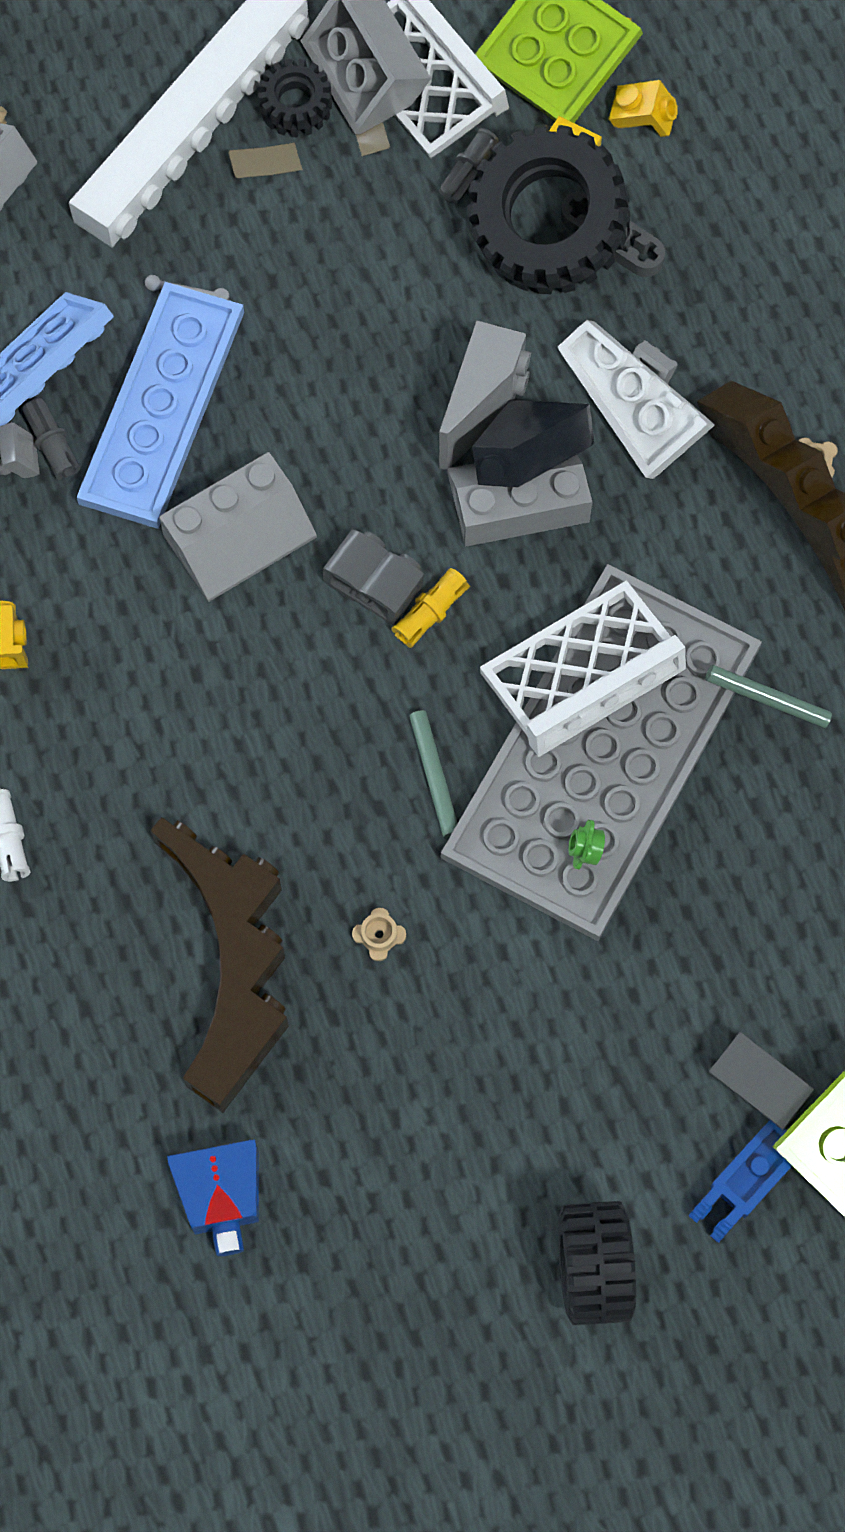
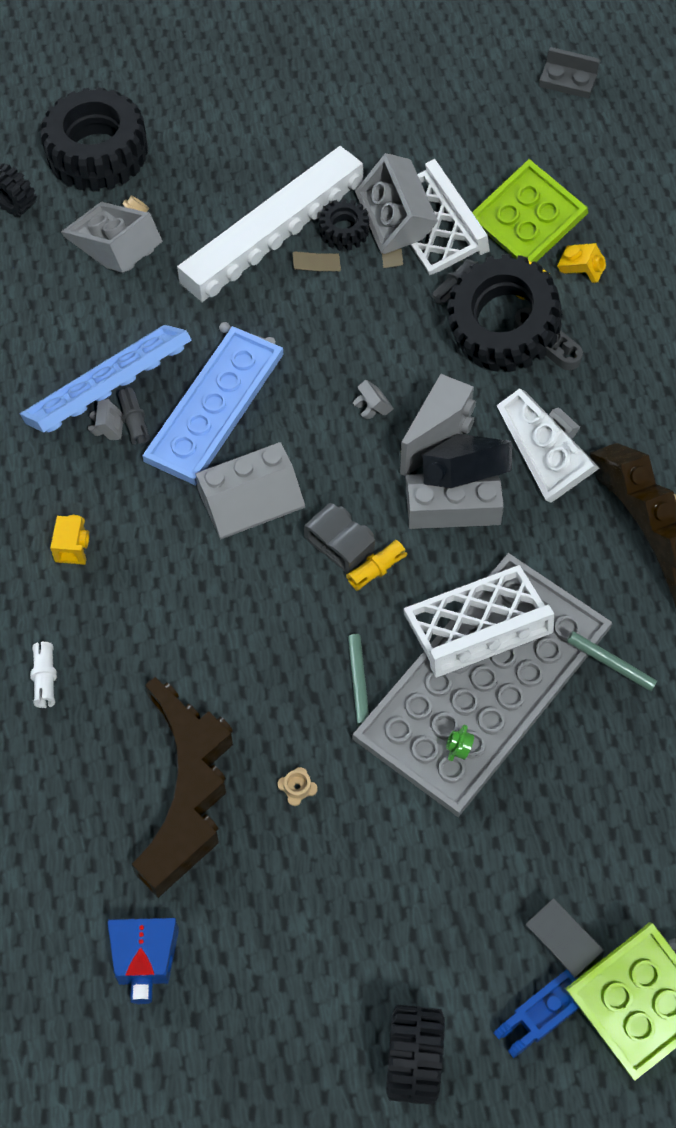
camera: 10 degrees right, 10 degrees down
(386, 363) = (374, 399): none -> light grey tile

